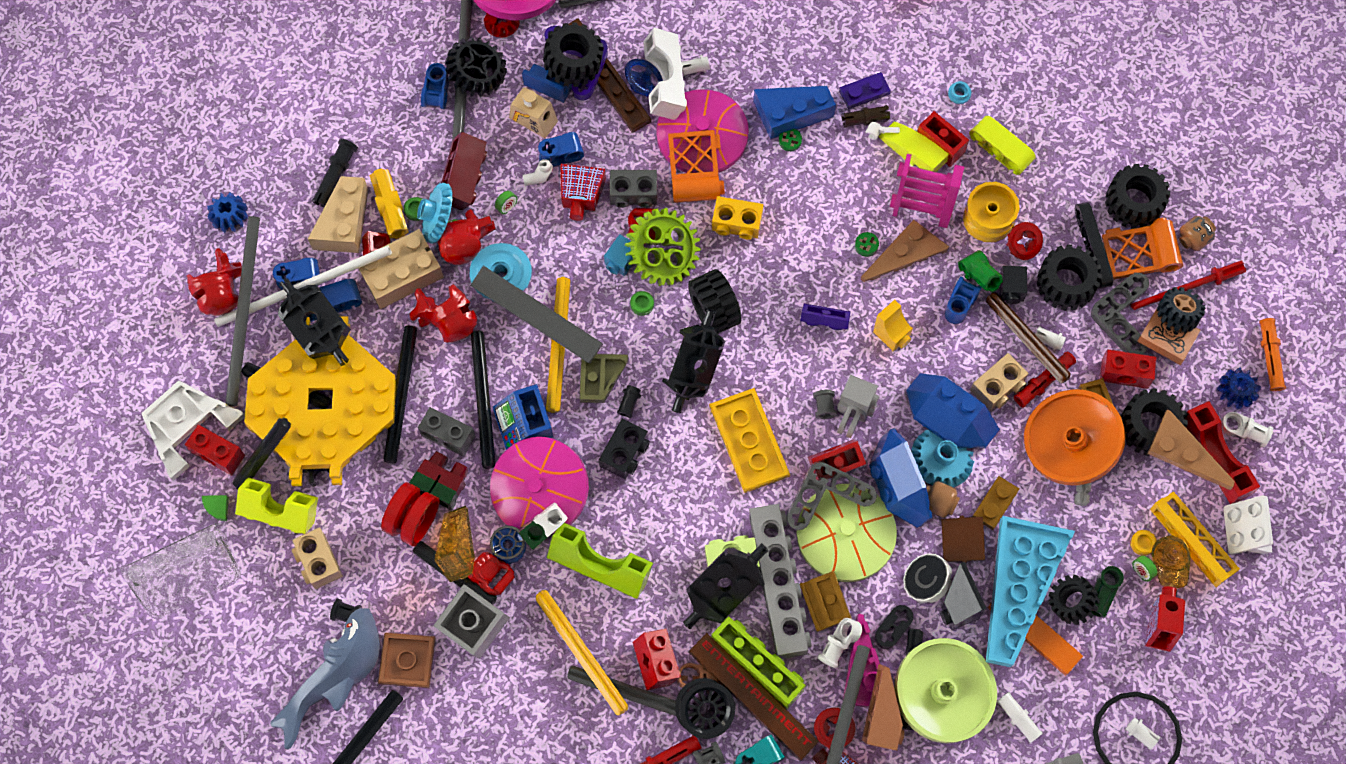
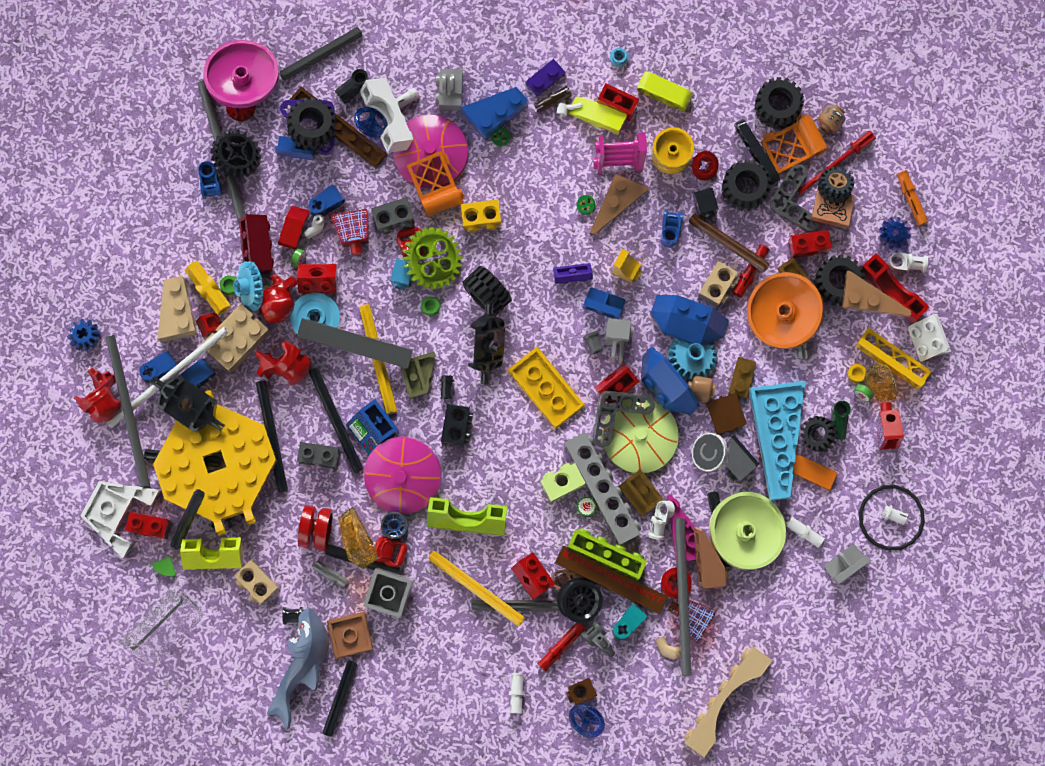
camera: 20 degrees left, 10 degrees up
(338, 163) = (155, 267): black pin -> none
(410, 578) = (330, 574): none -> light grey axle
(440, 482) = (335, 493): hips -> none
(511, 166) = (293, 227): none -> red slope
(519, 229) = (317, 278): none -> red brick
(530, 109) = (293, 178): tan torso -> none
(542, 525) = (416, 505): leg -> none
(636, 34) = (351, 87): none -> black piece
(717, 602) = (561, 519): black plate -> none
(748, 70) = (450, 89): none -> light grey brick
(754, 599) = (586, 506): none -> tile
(851, 361) = (604, 303): none -> blue panel
(898, 630) = (691, 493): black beam -> none
(978, 268) = (676, 199): green piece -> none
(1050, 339) = (747, 237): white pin -> none

